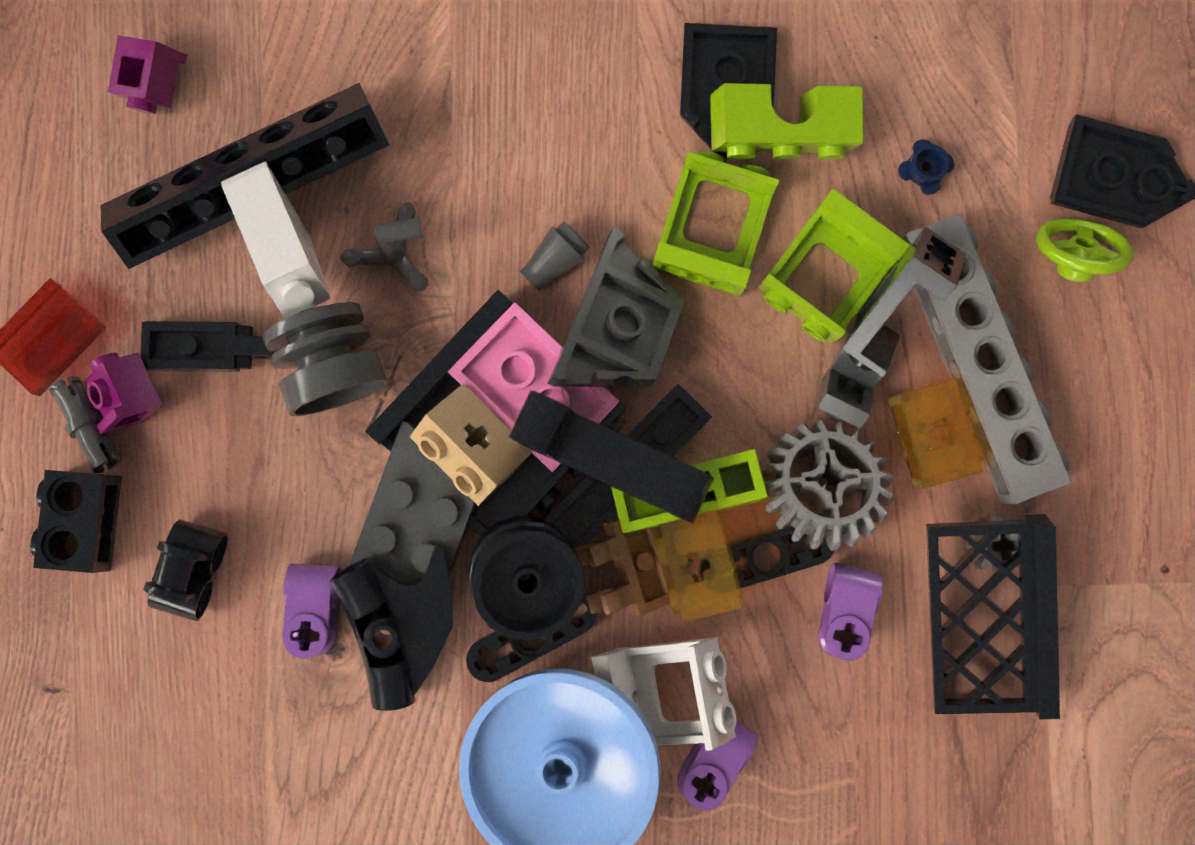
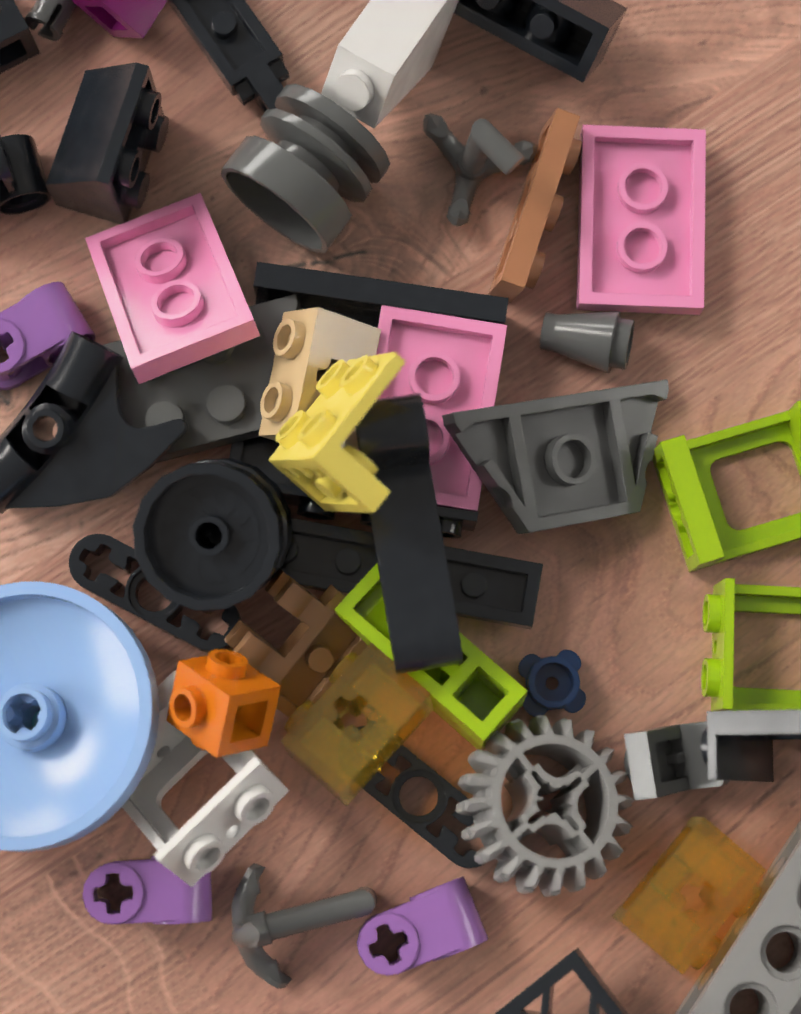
camera: 55 degrees right, 5 degrees down
(217, 473) = (109, 143): none -> black slope
(344, 498) = (171, 288): none -> bright pink plate
(448, 229) = (537, 206): none -> nougat plate
(501, 170) = (641, 220): none -> bright pink plate
(513, 472) = (312, 440): none -> light yellow bracket
(637, 643) = (223, 703): none -> orange brick
(765, 423) = (561, 667): none -> dark blue plate
(785, 713) = (259, 929): none -> dark grey piece

